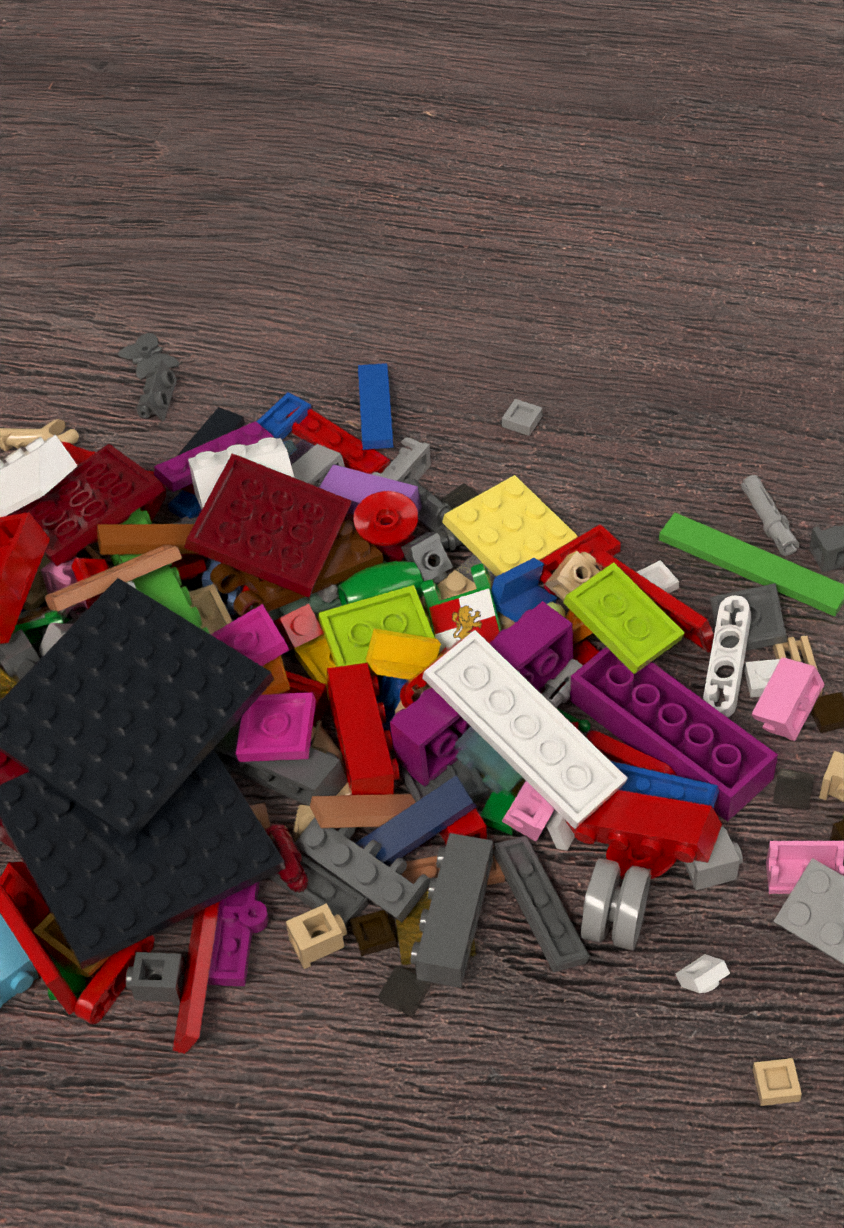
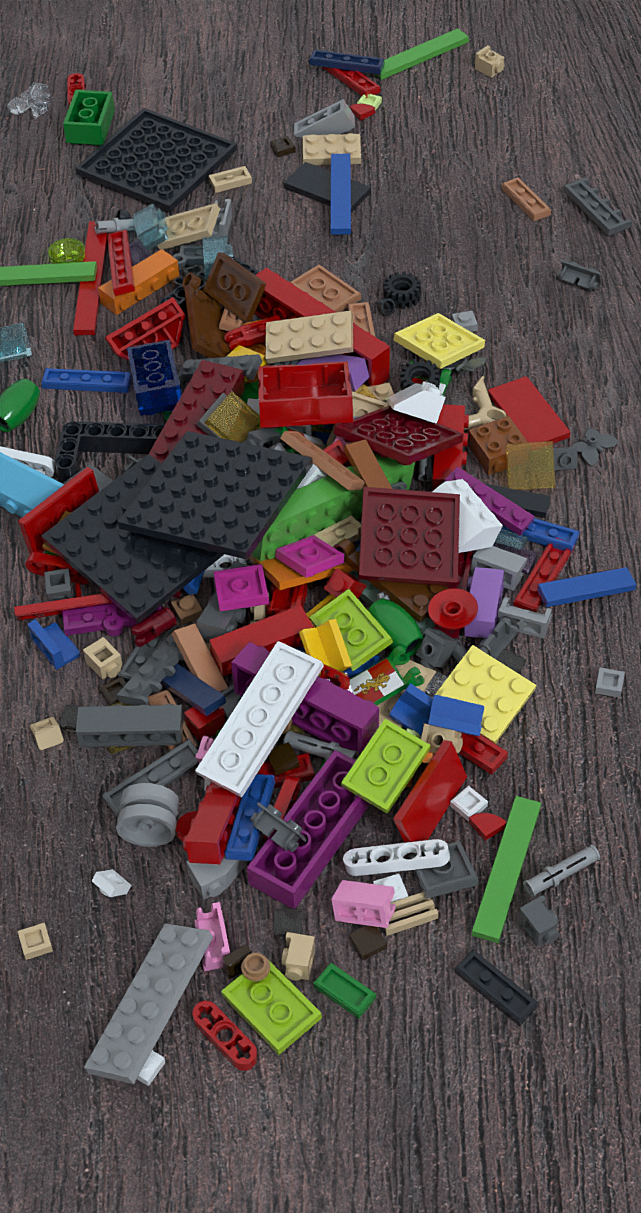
camera: 75 degrees right, 0 degrees up
(68, 398) = (529, 411): none -> red tile
(118, 425) = (490, 441): none -> dark orange brick
(168, 409) = (530, 465): none -> clear yellow tile
(257, 1004) = (53, 643): none -> blue panel
(416, 1032) = (47, 733): none -> tan slope
(550, 551) = (456, 715): none -> blue panel
(673, 753) = (286, 834): none -> dark grey hinge
(691, 569) = (487, 824): none -> red tile

